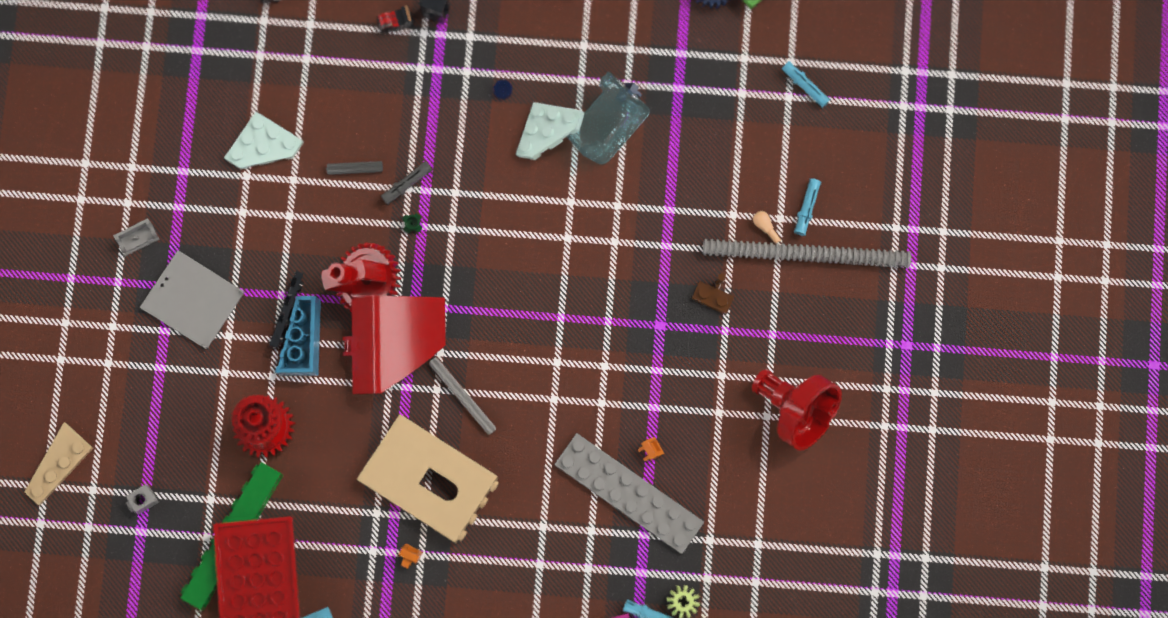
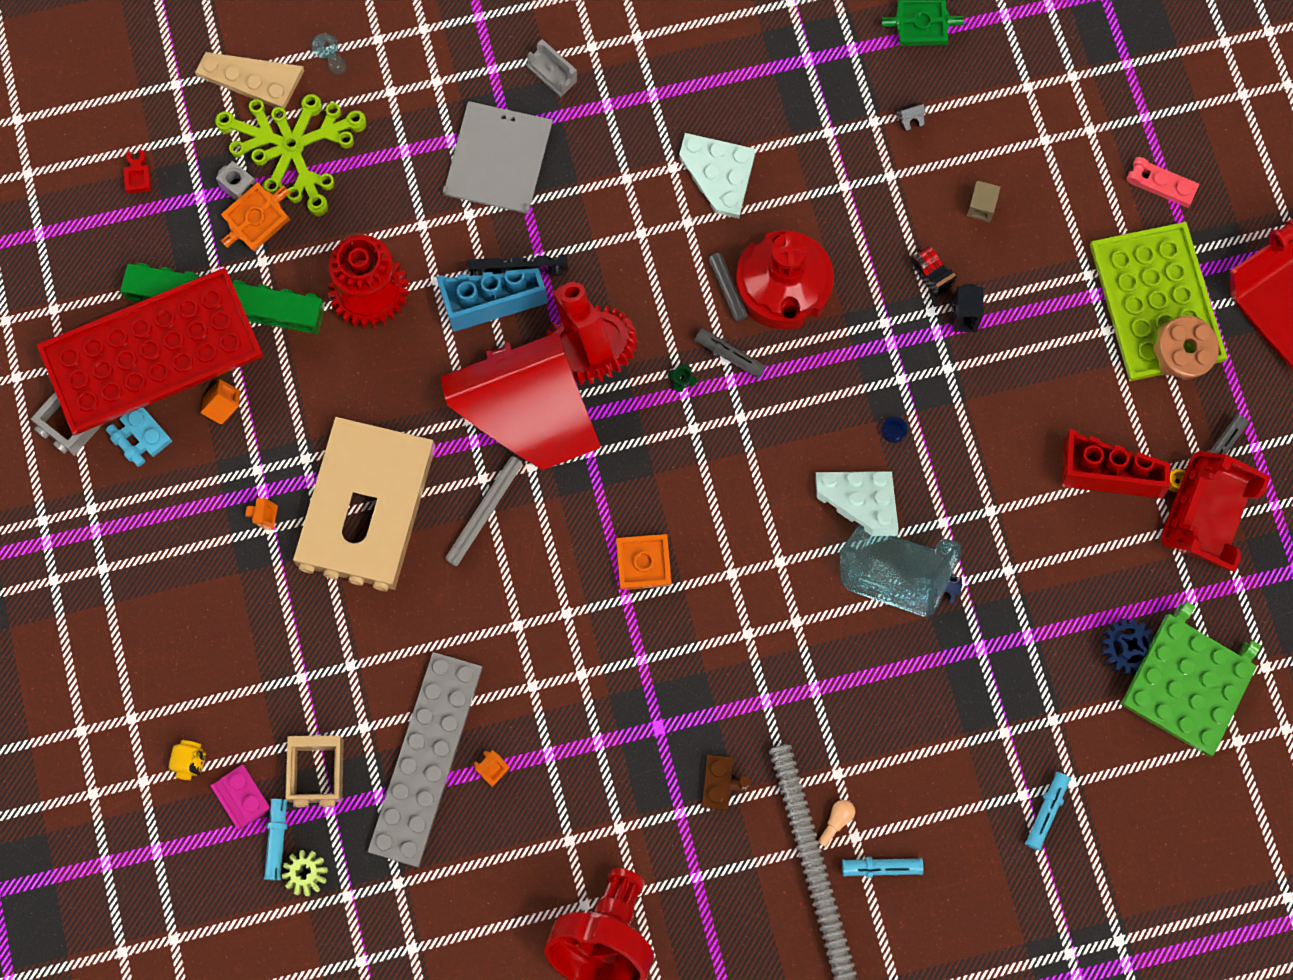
camera: 70 degrees right, 5 degrees down
(71, 396) = (336, 64): none -> clear light blue plate
(108, 573) = (137, 177): none -> red plate
(111, 467) = (265, 135): none -> lime plant
(175, 493) = (255, 216): none -> orange plate
(312, 561) = (220, 401): none -> orange panel
(365, 125) = (784, 276): none -> red piece
(539, 295) = (643, 562): none -> orange plate
(593, 567) = (313, 743): none -> tan window

